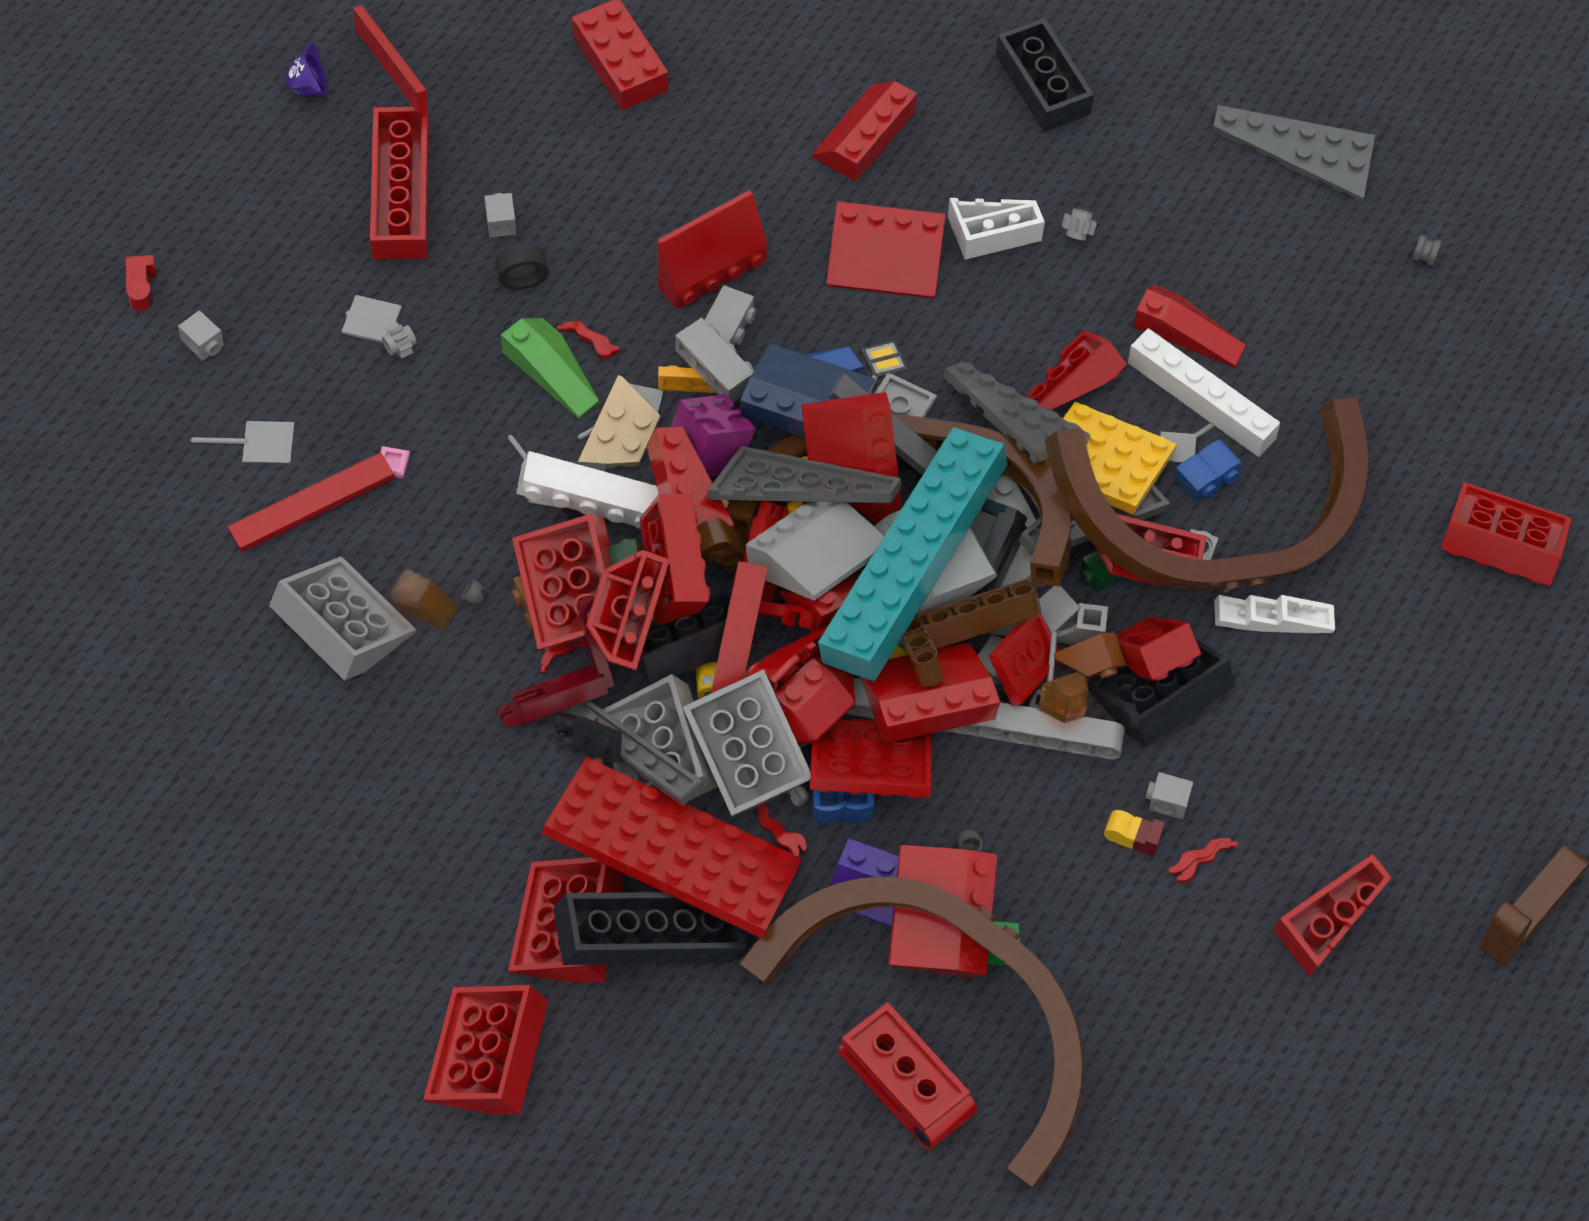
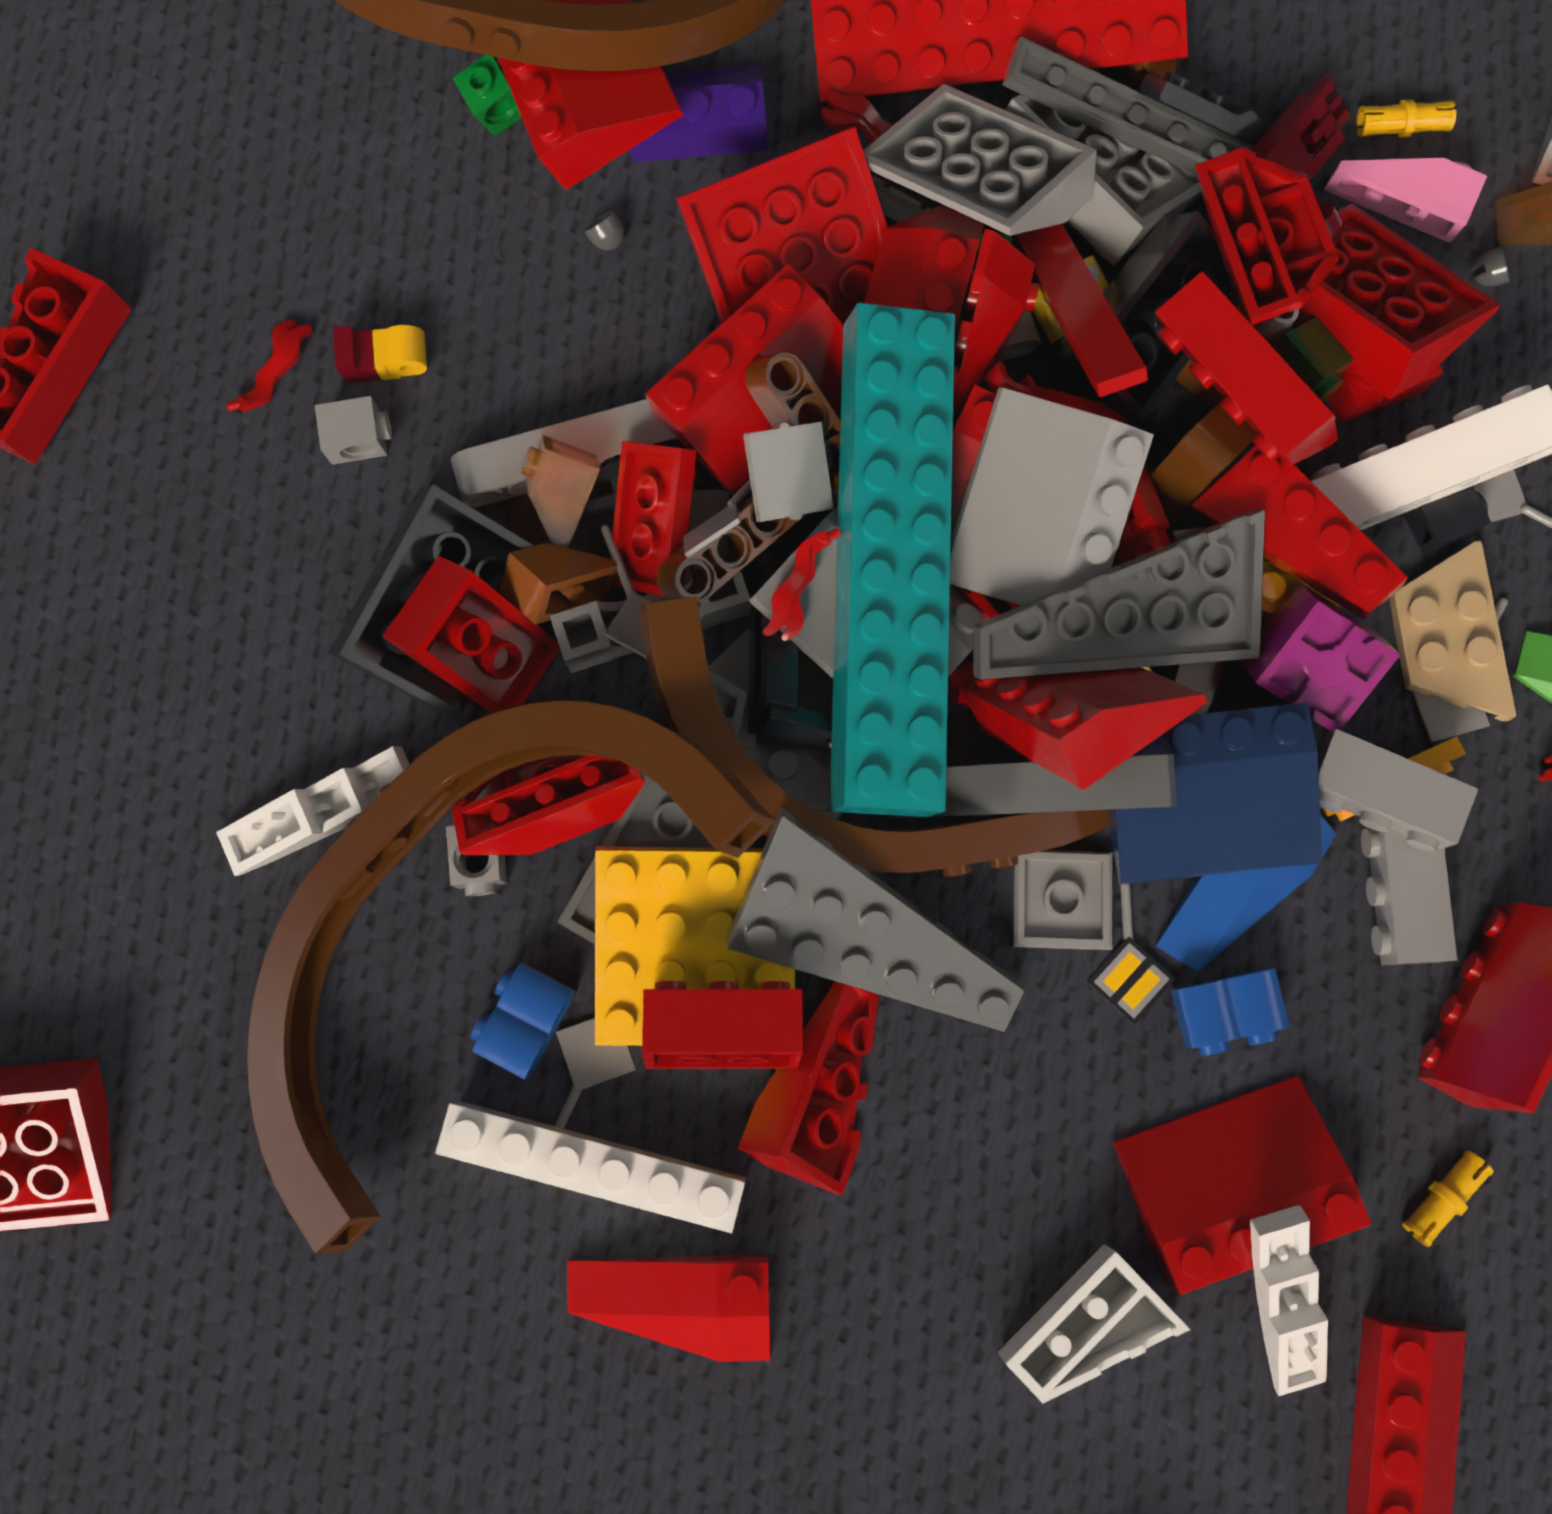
camera: 155 degrees right, 20 degrees up
(466, 692) = (1406, 118): none -> yellow pin
(490, 647) = (1419, 192): none -> bright pink slope
(786, 204) = (1447, 1198): none -> yellow pin
(845, 320) = (1230, 1010): none -> blue brick
(894, 190) = (1288, 1300): none -> white slope
(945, 618) = (788, 471): none -> light grey piece
(980, 559) = (786, 598): none -> red hair
(998, 611) = (716, 524): none -> light grey piece
(1079, 224) = (949, 1412): light grey gear -> none
(1110, 399) = (722, 1026): none -> red brick

